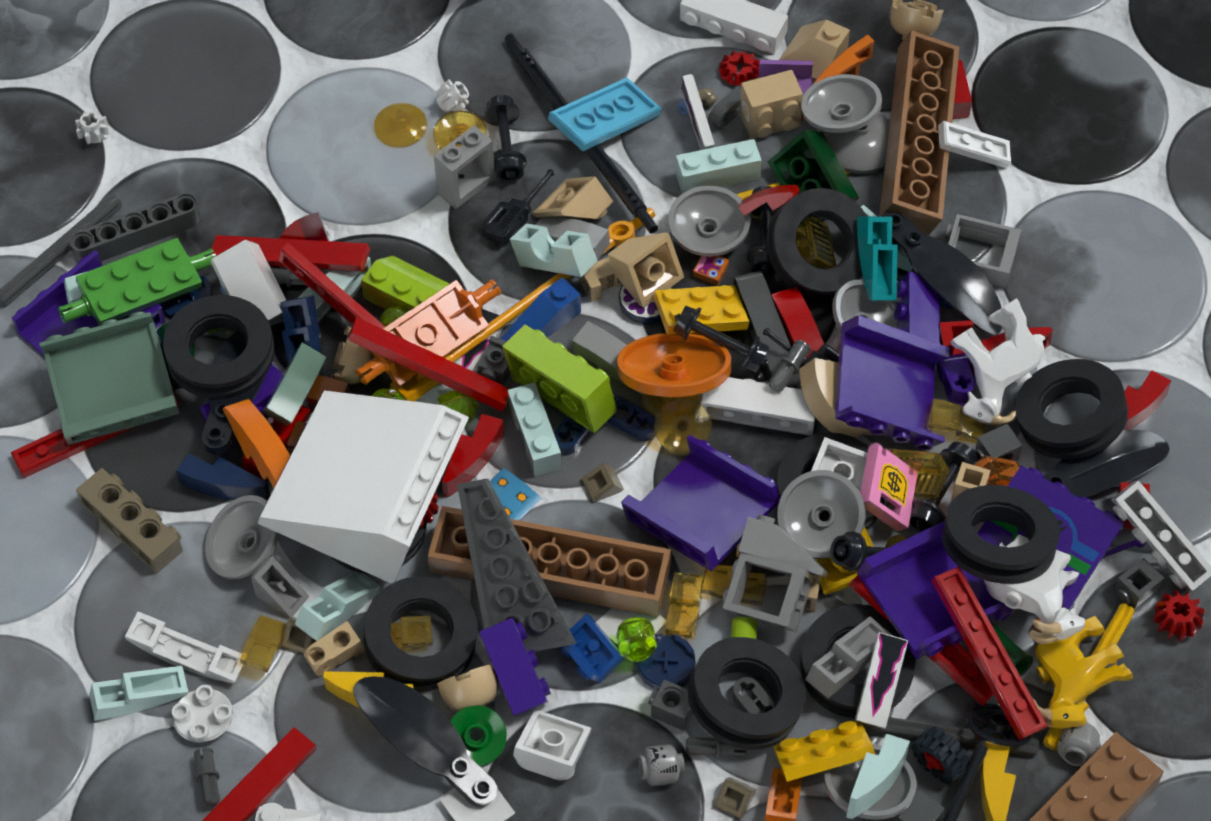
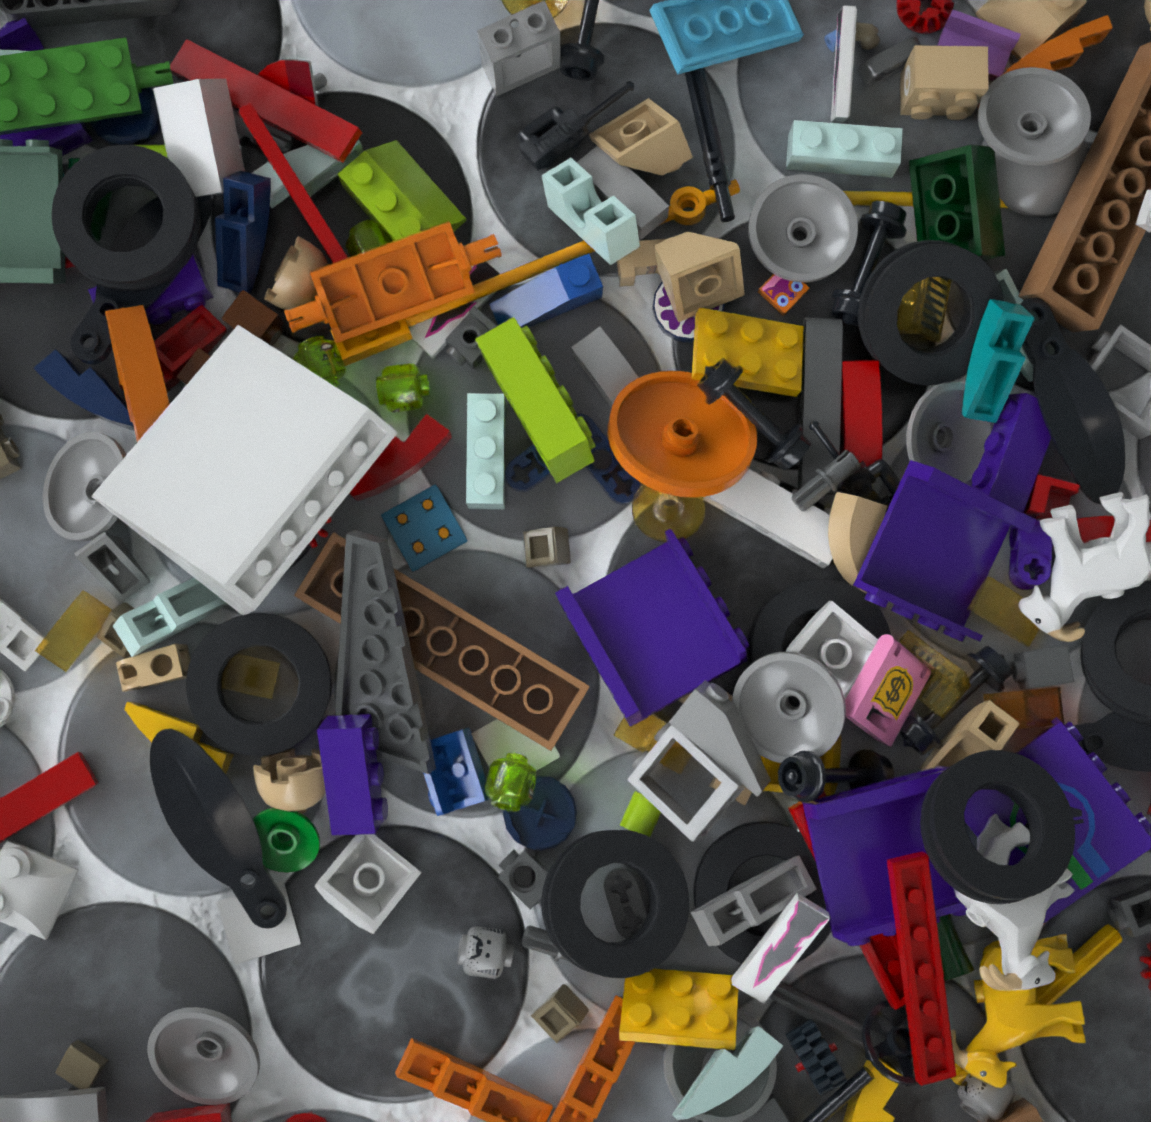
camera: 15 degrees right, 25 degrees up
(294, 385) = (208, 299): sand green slope -> none
(428, 364) = (376, 329): red tile -> none
(684, 605) = (586, 748): clear yellow slope -> none
(773, 196) = (895, 229): red slope -> none

